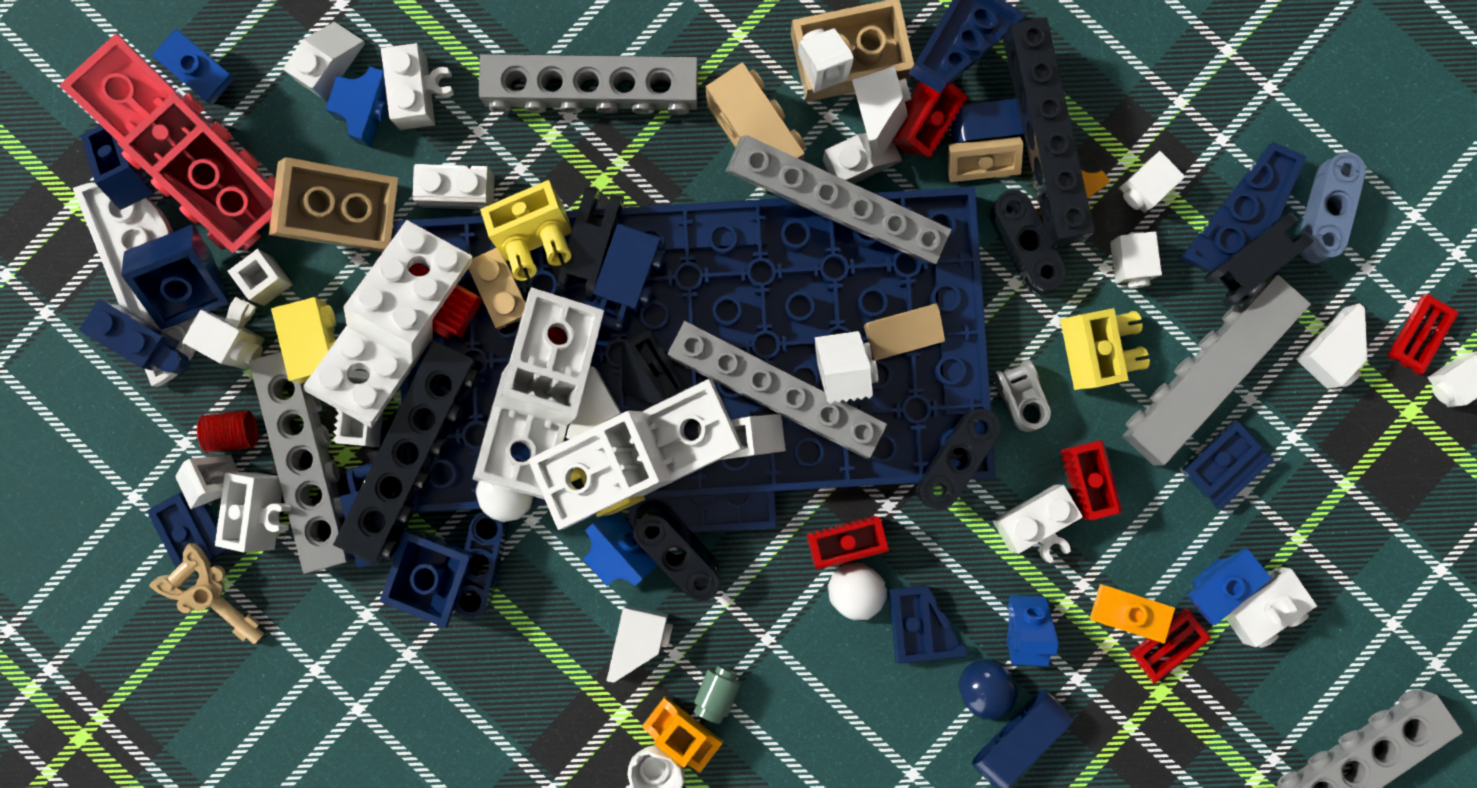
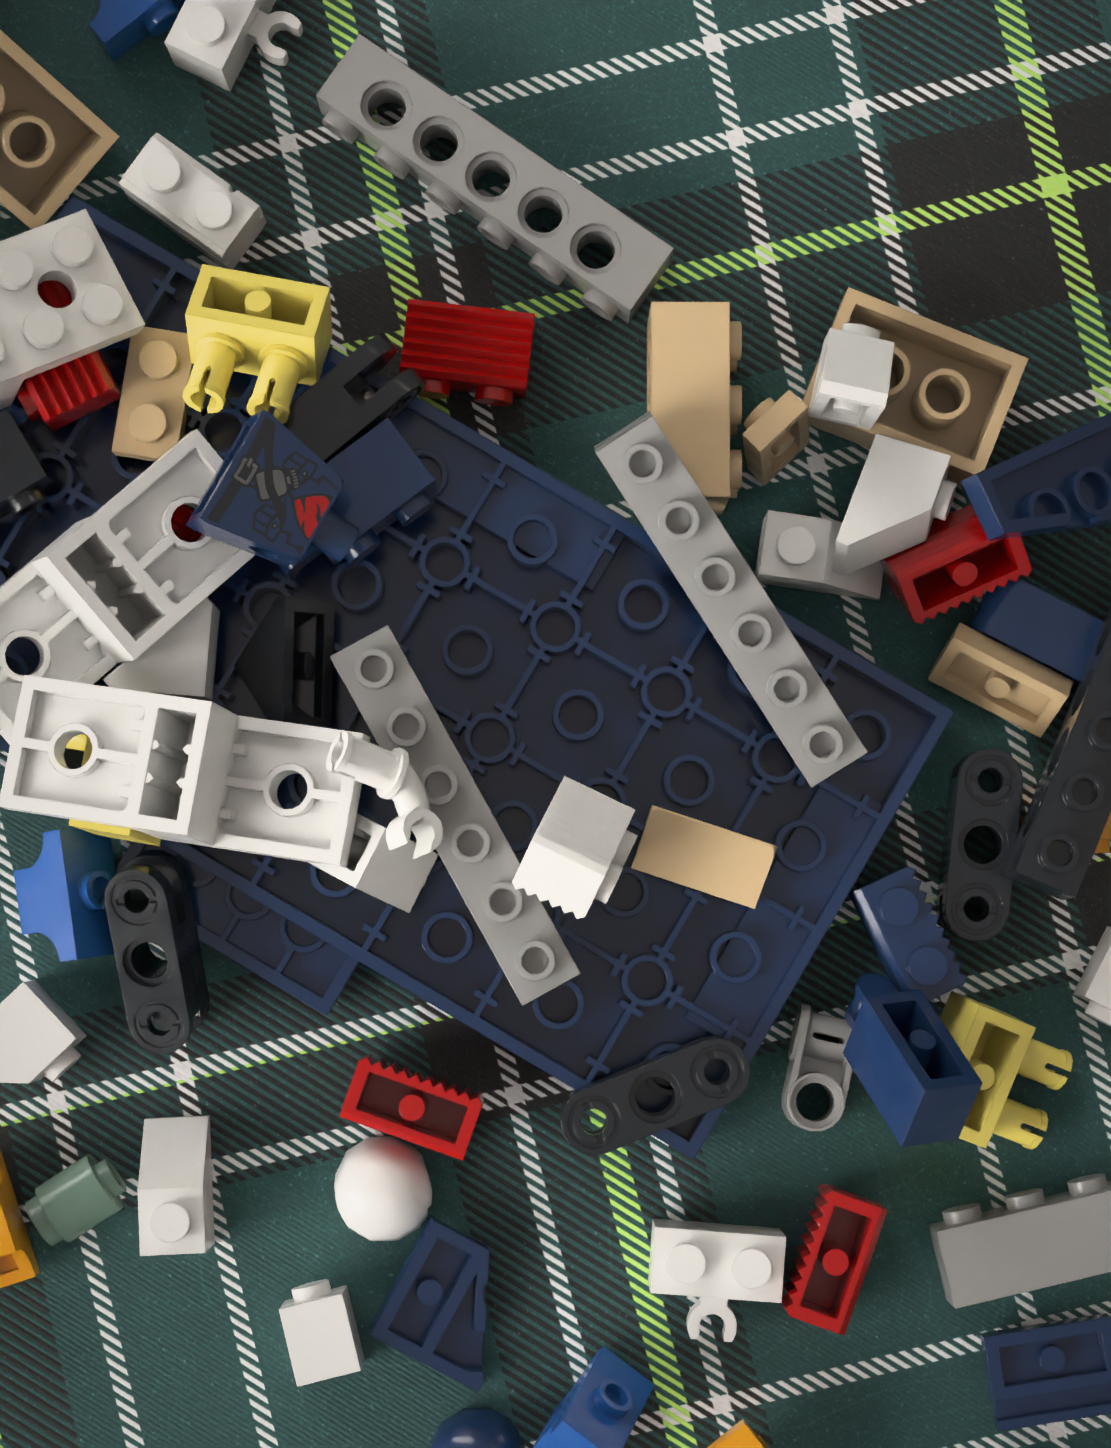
camera: 30 degrees right, 0 degrees up
(590, 295) = (274, 497): none -> dark blue torso
(632, 169) = (468, 350): none -> red brick
(737, 391) = (395, 780): none -> white piece
(759, 656) = (175, 1186): none -> white slope
(804, 112) = (775, 435): none -> tan plate
(874, 678) = (321, 1332): none -> white brick
(1023, 307) = (907, 934): none -> dark blue brick
(1067, 363) = (908, 1063): none -> dark blue brick

